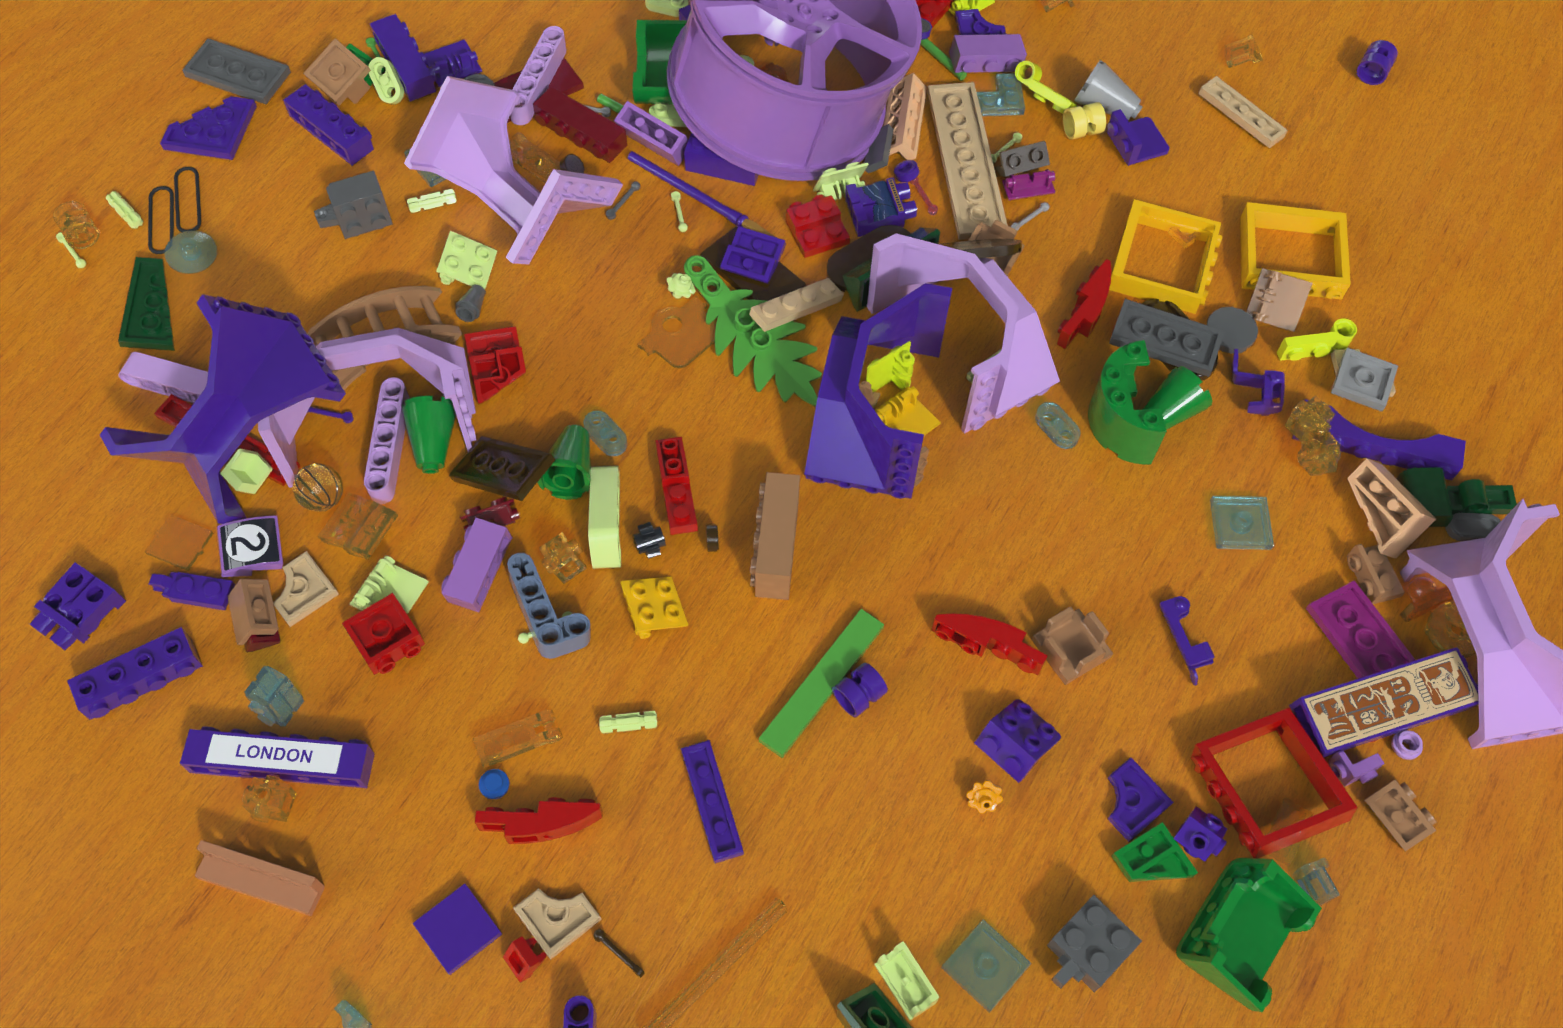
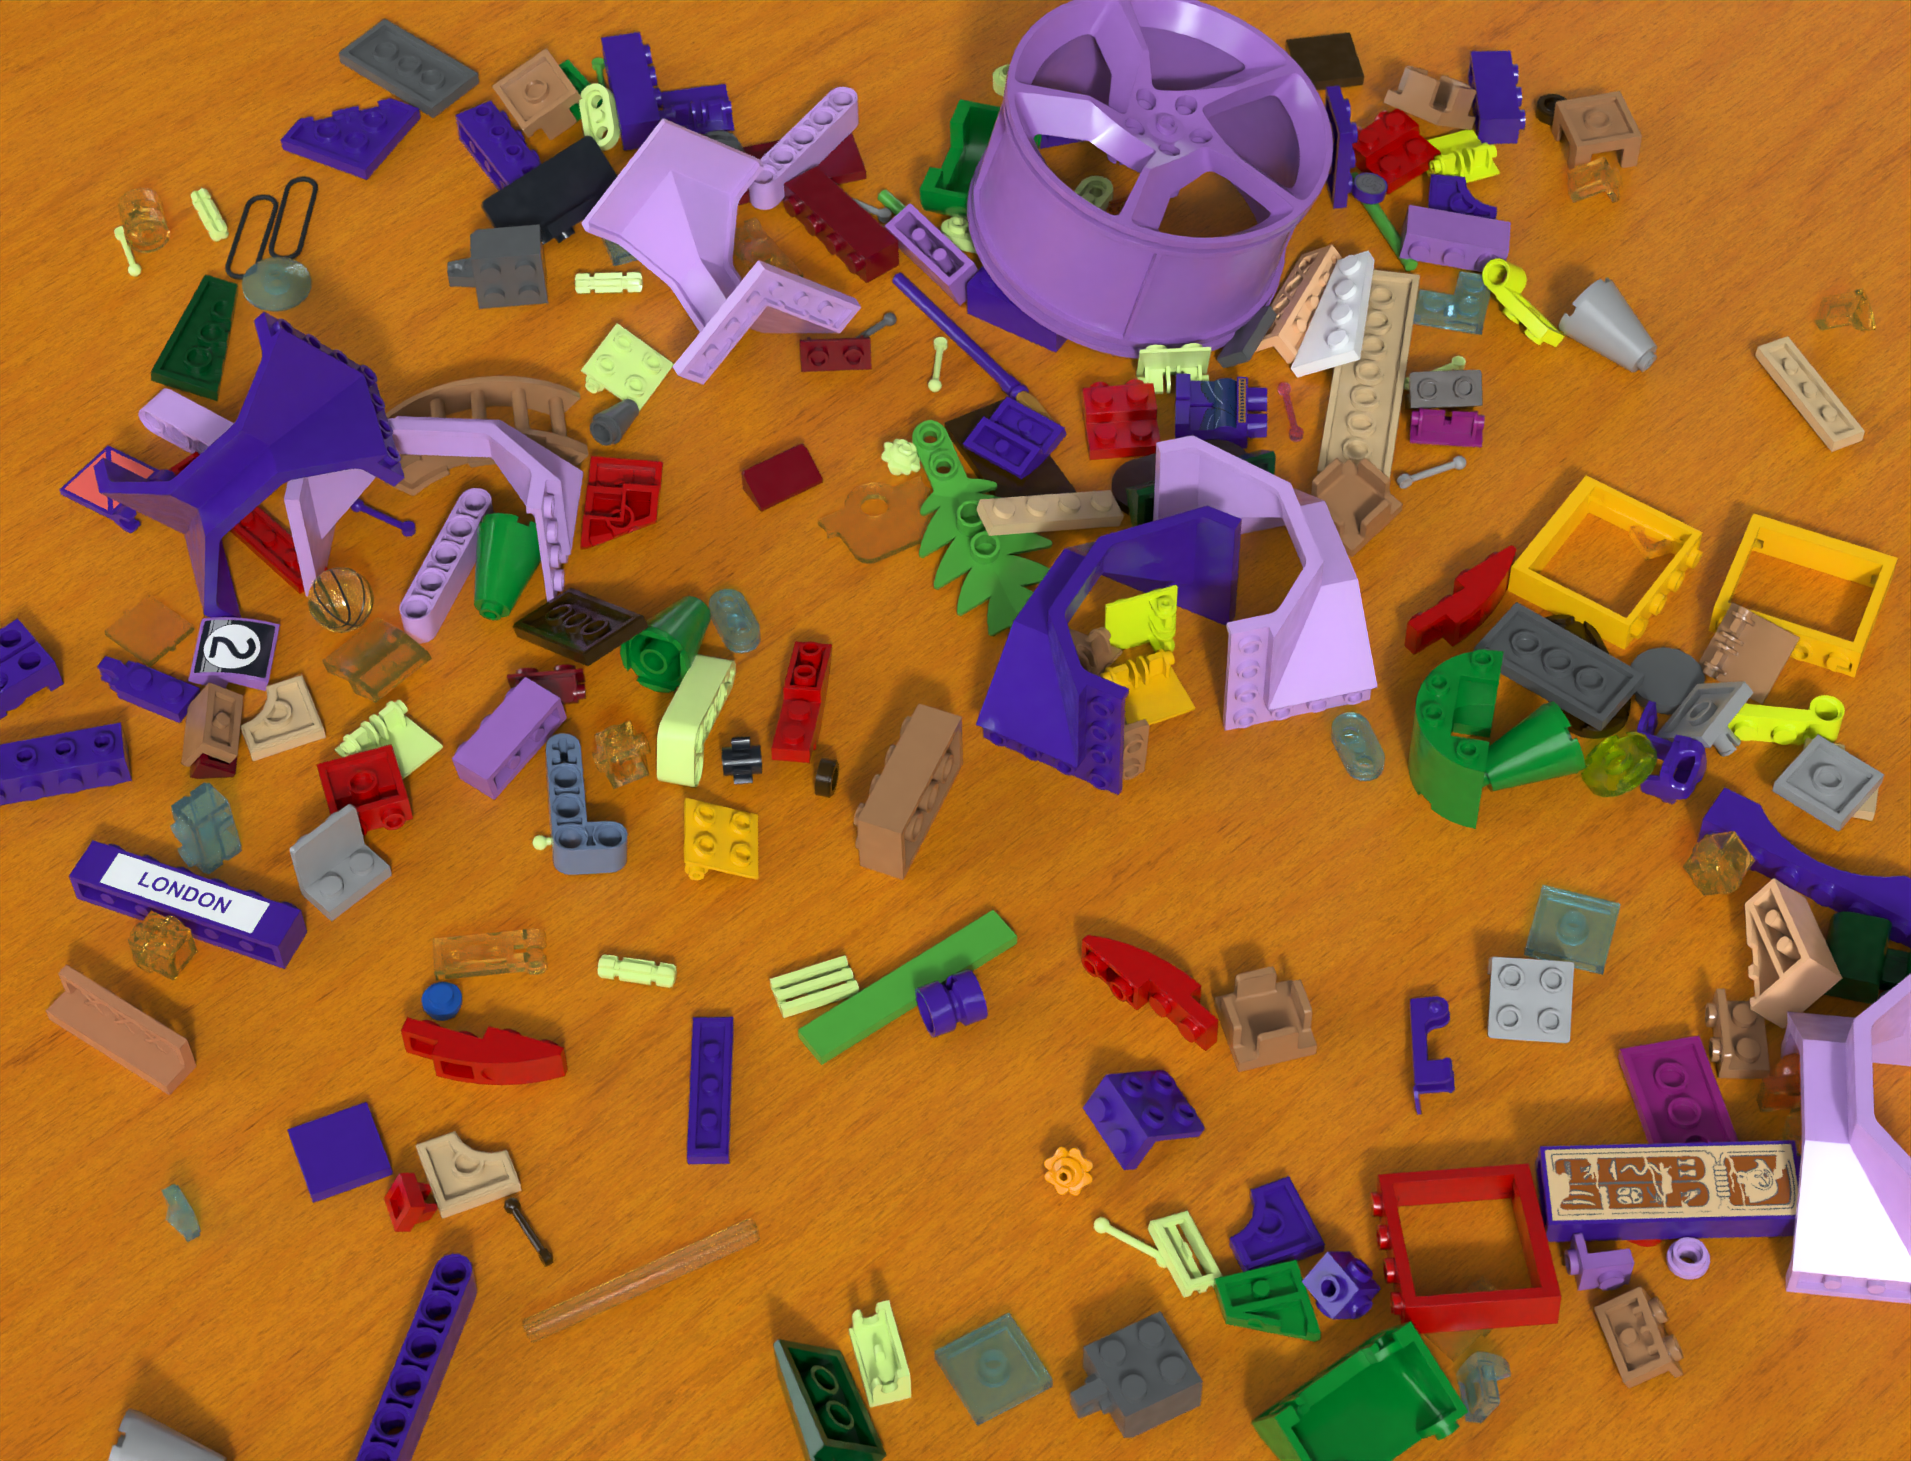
camera: 20 degrees right, 10 degrees down
(117, 418) = (85, 491): none -> flag
(246, 471) = (259, 561): yellowish green panel -> none
(375, 143) = (555, 192): none -> black bracket
(383, 698) = (336, 864): none -> light grey bracket
(572, 163) = (812, 270): tile -> none
(601, 319) = (781, 477): none -> dark red slope
(608, 220) = (835, 354): none -> dark red hinge
(750, 691) = (811, 981): none -> yellowish green tile
(906, 171) = (1276, 374): dark purple tile -> none
(935, 123) = (1340, 318): none -> white wing
(988, 247) = (1333, 489): dark brown tile -> none
(1068, 842) = (1102, 1226): none -> yellowish green hinge
(1081, 839) = (1165, 1228): none -> yellowish green tile
(1089, 120) = (1561, 358): light yellow wheel -> none
(1136, 139) = (1631, 399): dark purple bracket -> none
(1232, 398) = (1619, 764): none -> clear neon green tile
(1237, 580) = (1530, 999): none -> light grey bracket
(1273, 349) = (1707, 713): none -> light grey tile
(1310, 419) = (1709, 809): clear yellow brick -> none

